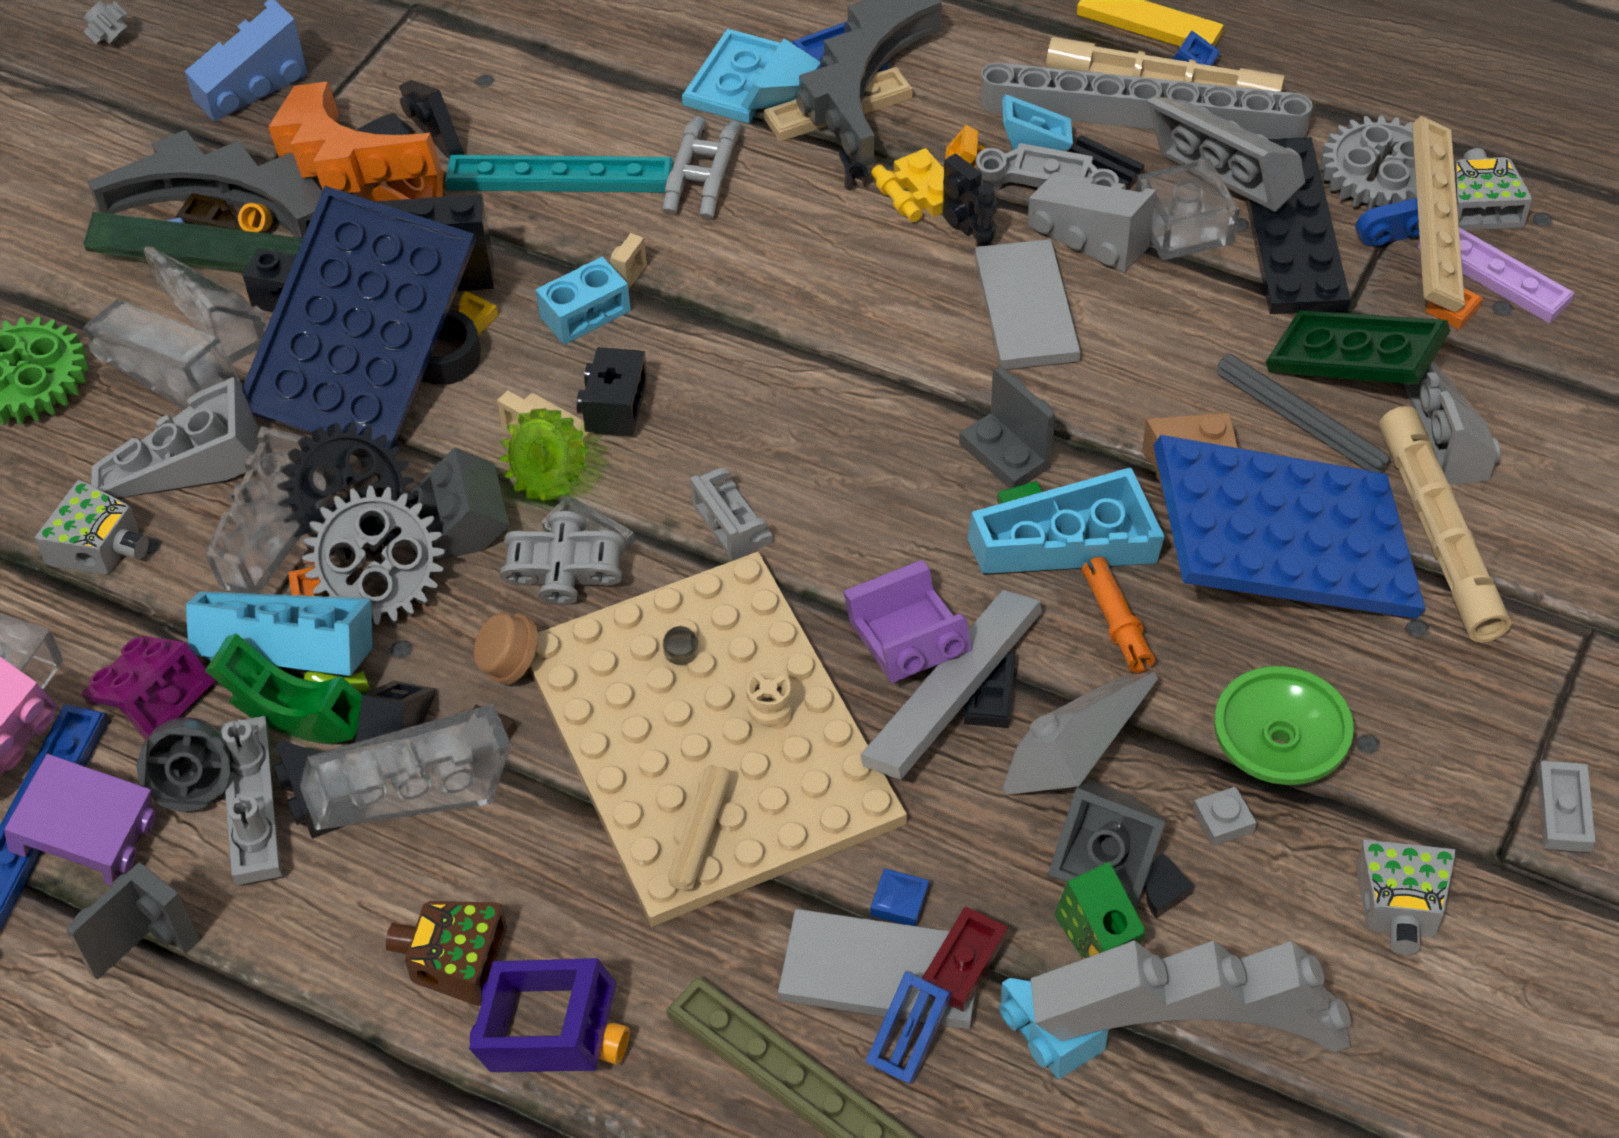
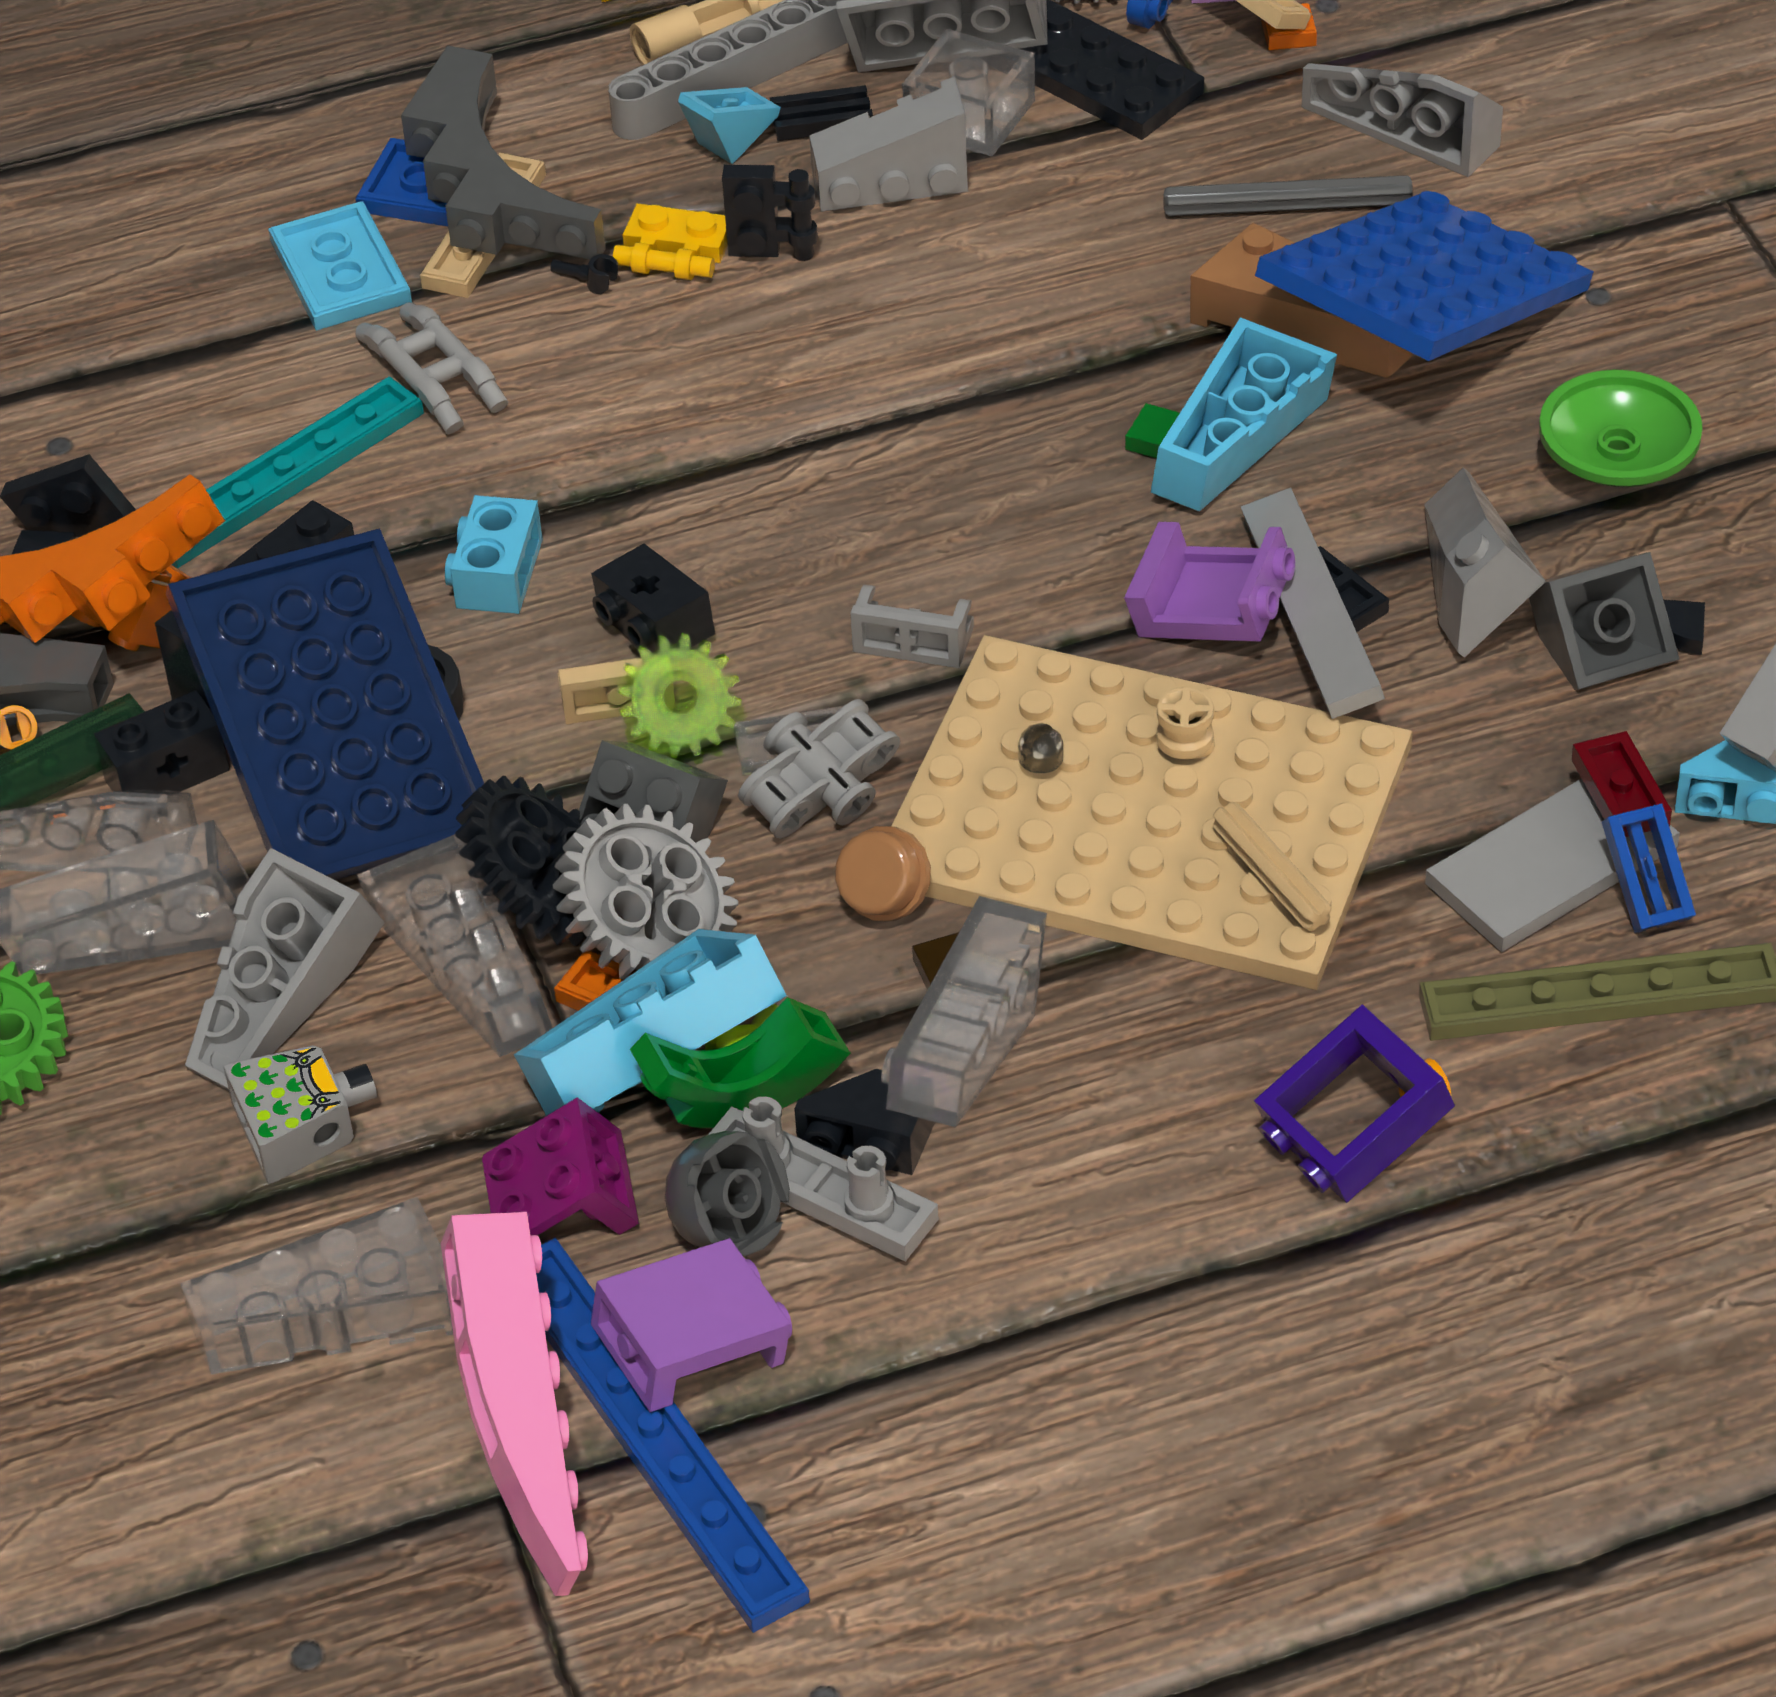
camera: 45 degrees left, 5 degrees down
(125, 915) = (887, 1320): dark grey bracket -> none
(393, 709) = (862, 1009): black slope -> none
(451, 946) = (1189, 1133): reddish brown torso -> none
(630, 258) = (488, 478): tan plate -> none
(779, 76) = (405, 228): medium azure slope -> none
(899, 898) = (1491, 797): blue tile -> none
(965, 145) = (683, 182): light orange tile -> none
(1015, 436) = (1077, 370): dark grey bracket -> none
(1026, 304) = (922, 272): light grey tile -> none
(1035, 164) = (786, 139): light grey plate -> none
(1098, 912) = (1685, 674): green torso -> none
(1123, 626) = (1382, 460): orange pin -> none
(1224, 816) = (1653, 534): light grey plate -> none
(1358, 346) = (1277, 102): dark green tile -> none
(1444, 525) = (1521, 196): tan piece -> none

